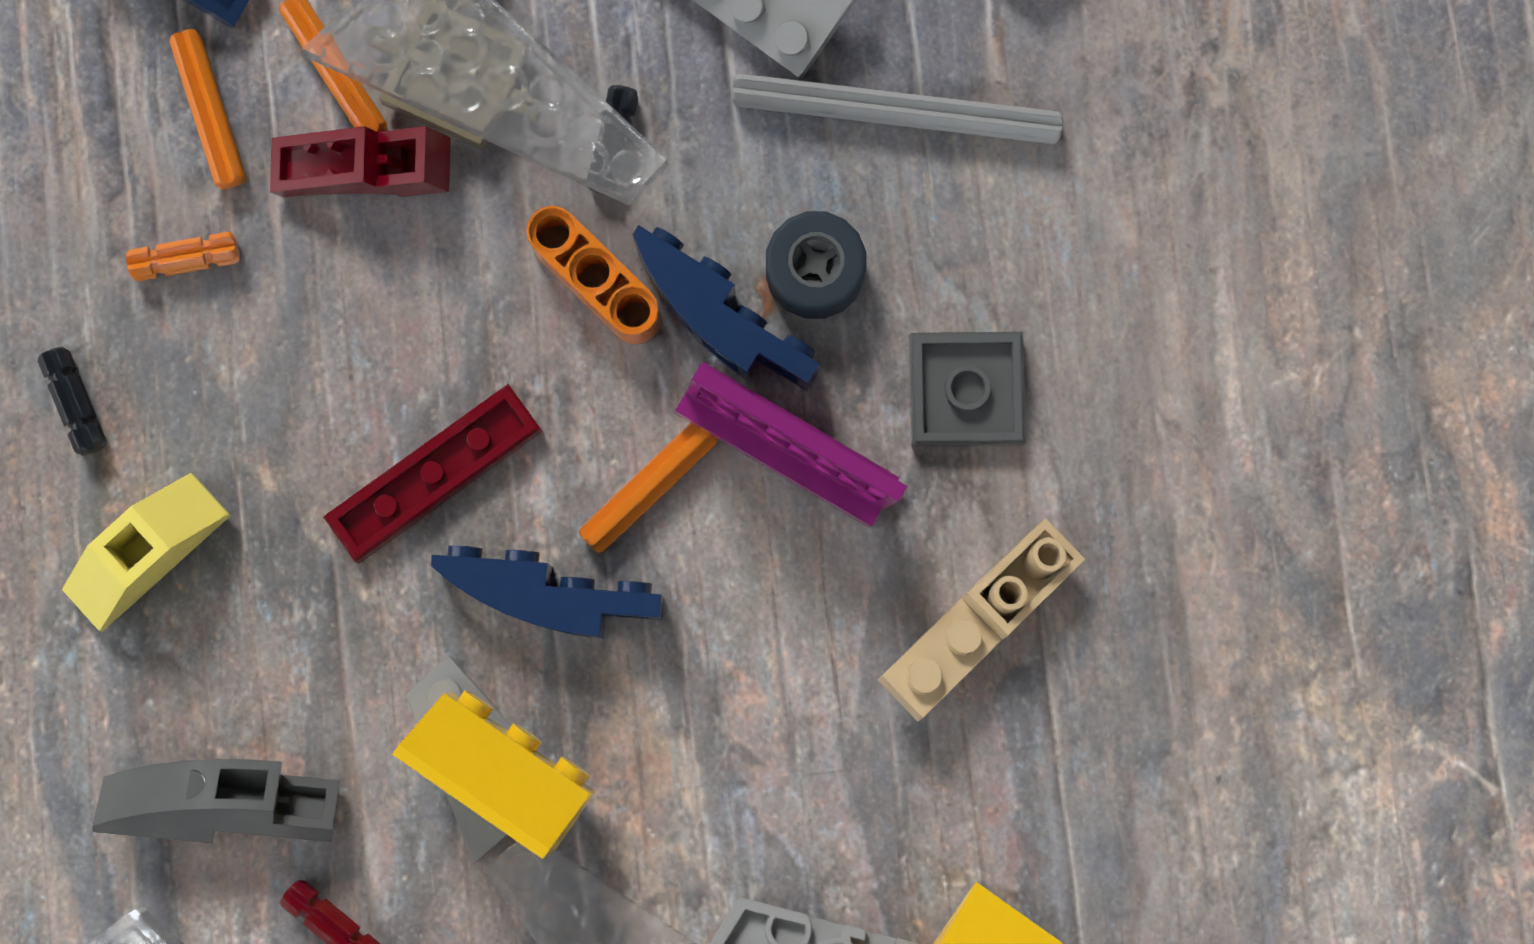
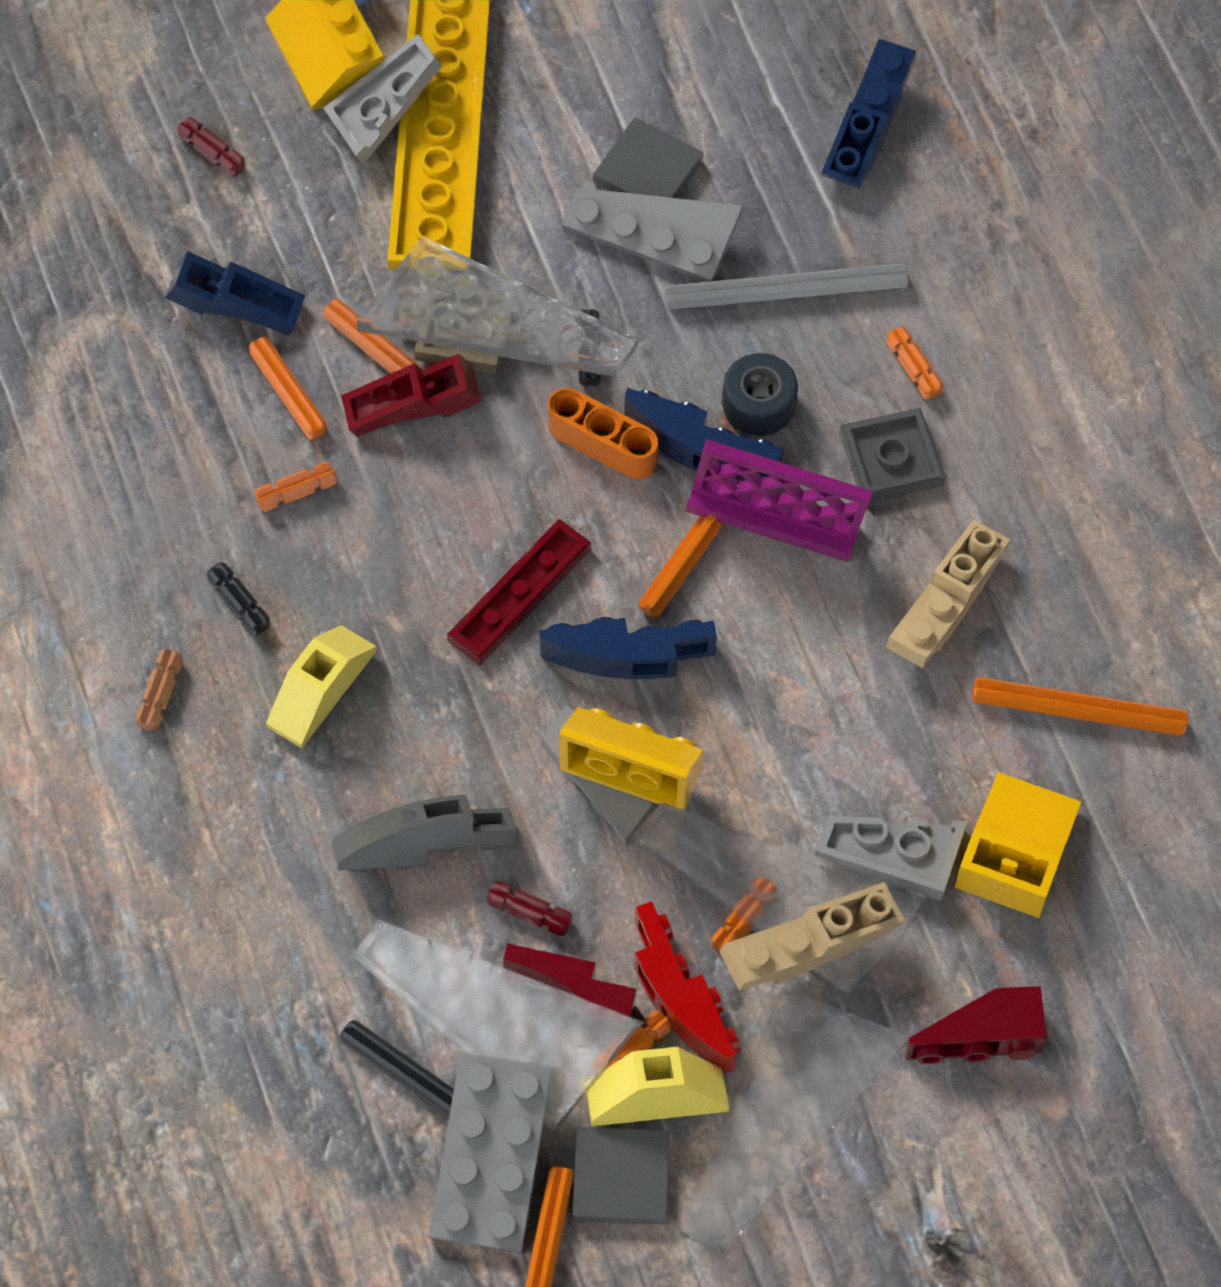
camera: 15 degrees left, 20 degrees down
(1034, 262) = (915, 363): none -> orange axle
(1110, 812) = (1080, 706): none -> orange axle

